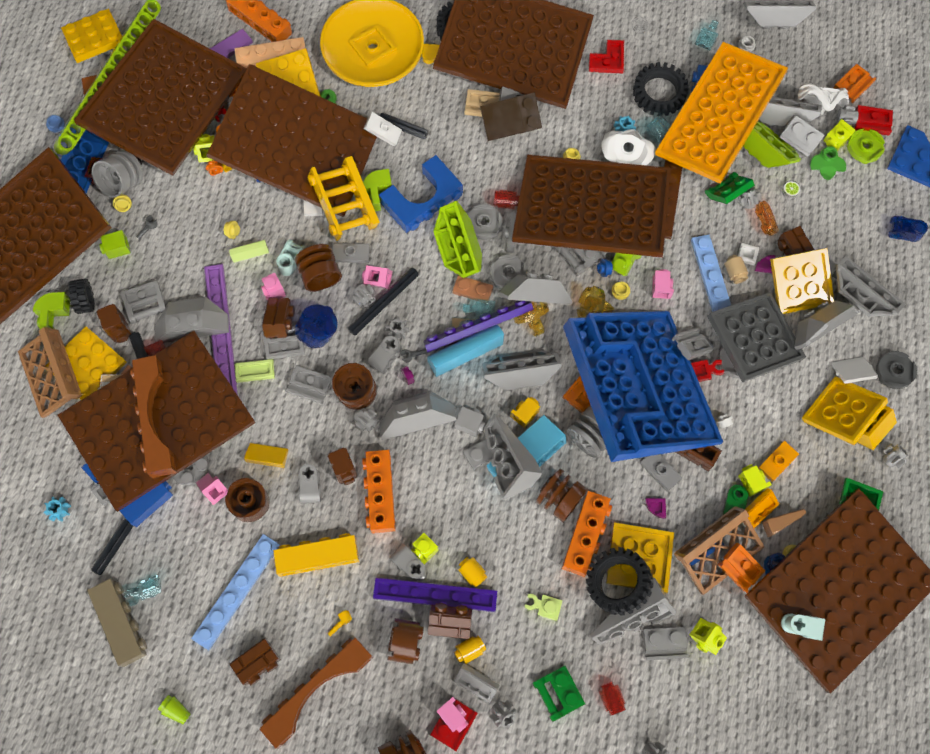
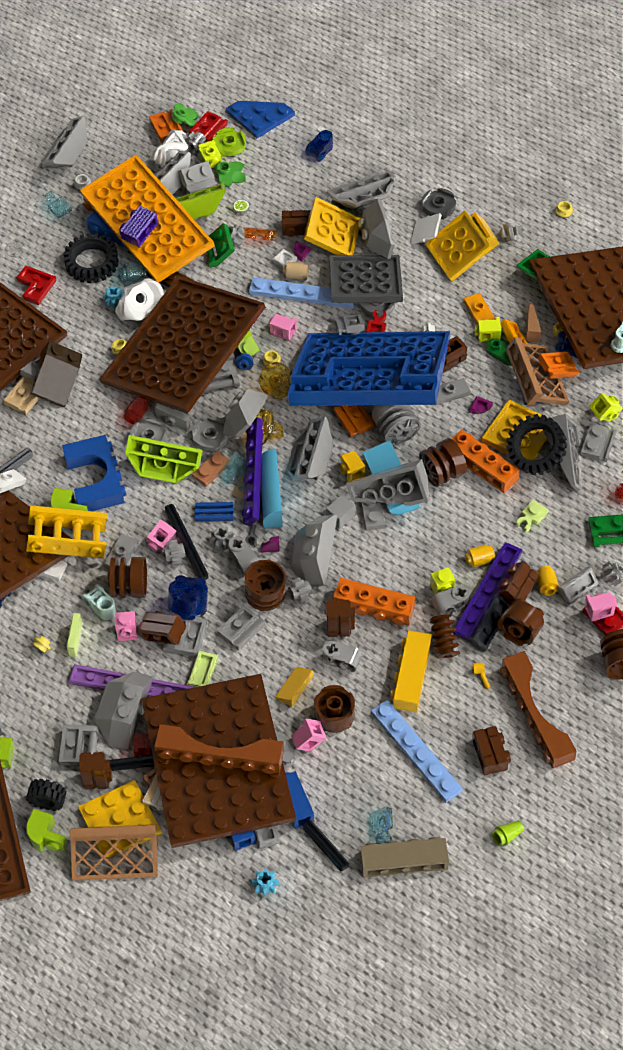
camera: 65 degrees left, 15 degrees down
(361, 574) = (443, 636): none -> reddish brown piece
(395, 608) = (487, 625): none -> black tile
(421, 298) = (213, 508): none -> blue tile
(702, 107) = (138, 226): none -> dark purple brick
(876, 92) = (181, 114): none -> bright green plate

